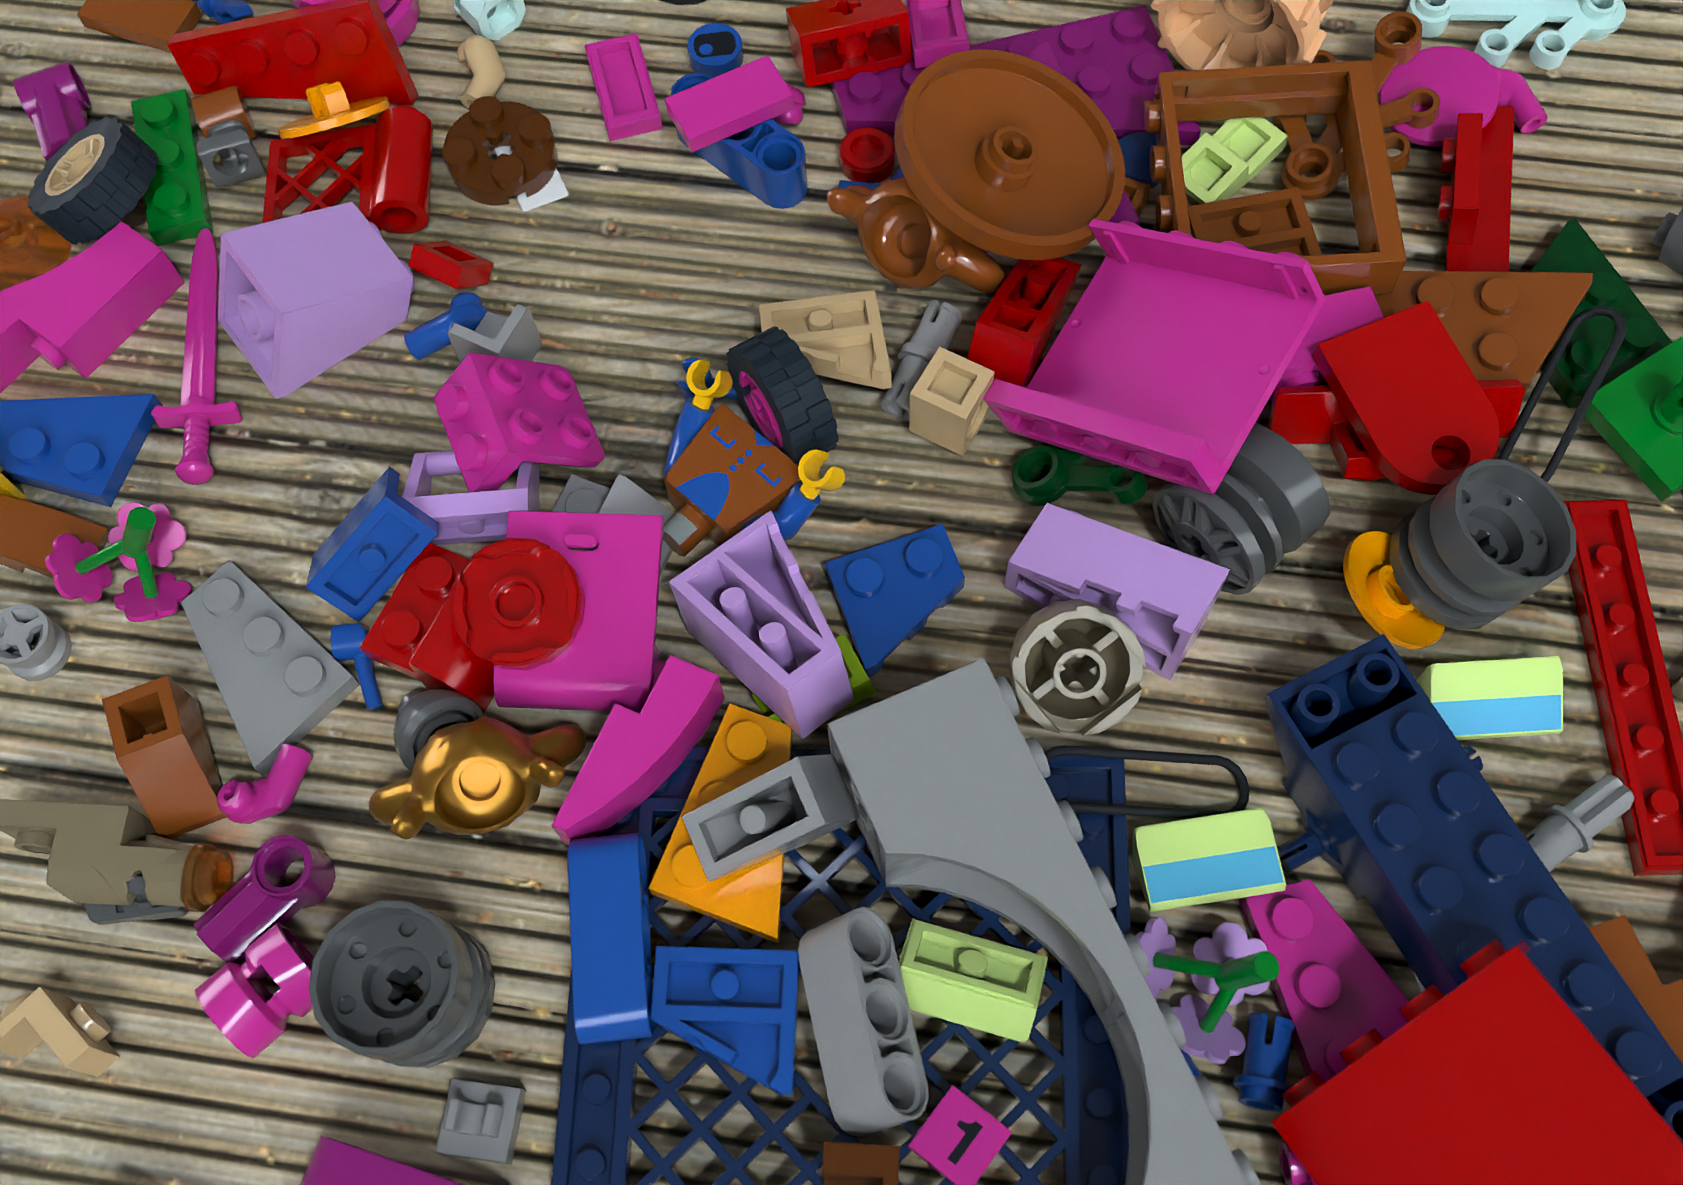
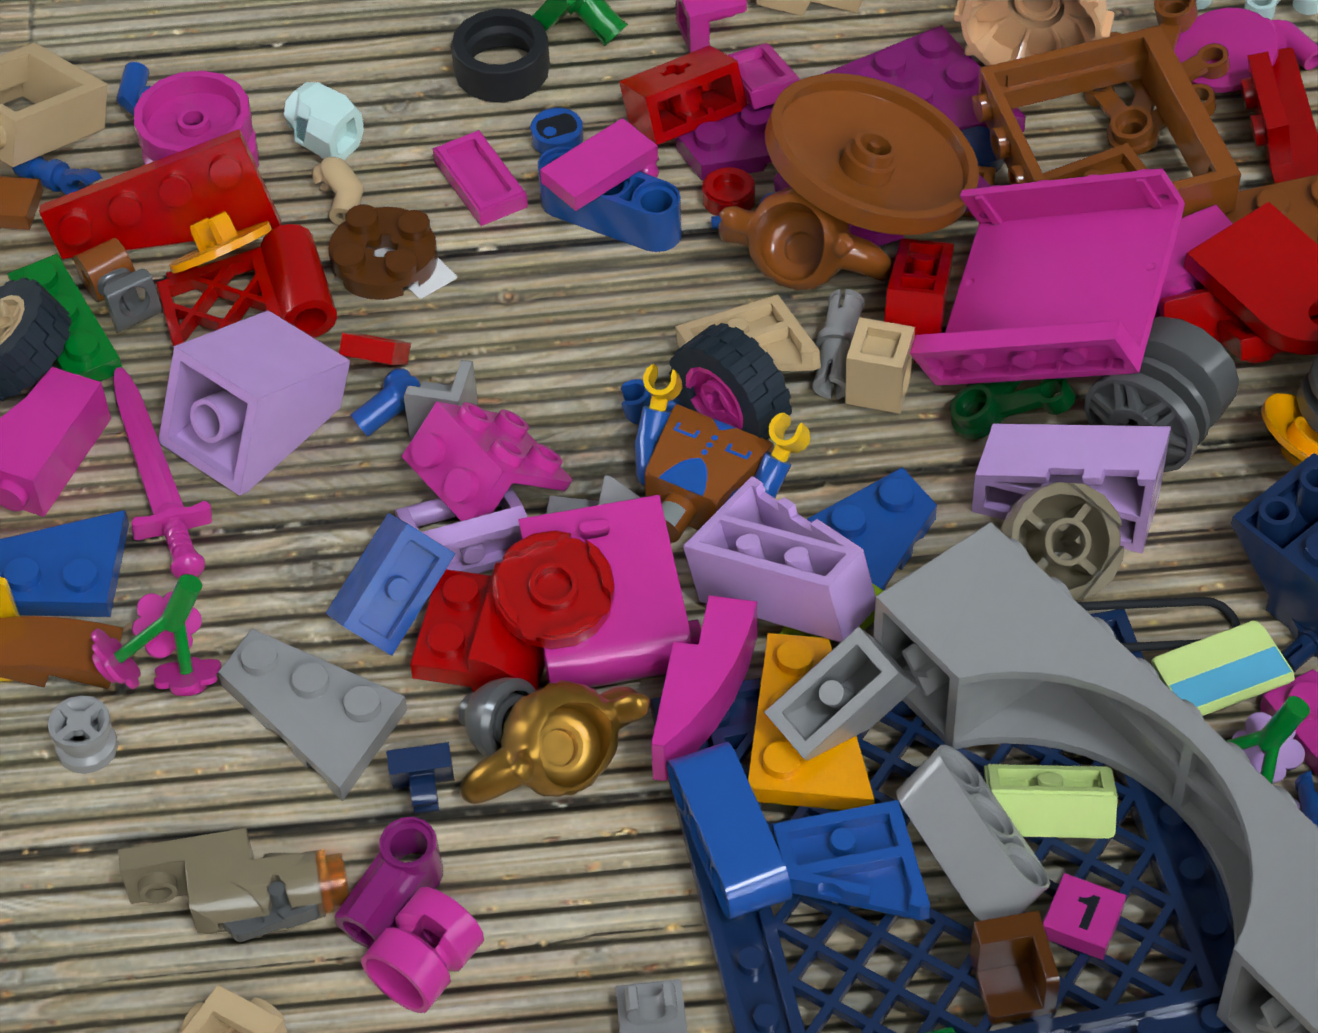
camera: 15 degrees left, 15 degrees down
(165, 755) = (260, 786): dark orange slope -> none
(268, 795) = (358, 809): dark pink arm -> none
(336, 775) = (421, 770): none -> dark blue tile
(345, 646) = (394, 672): blue hand -> none
(365, 980) = (555, 908): dark grey wheel -> none
(1230, 158) = (1062, 130): yellowish green slope -> none

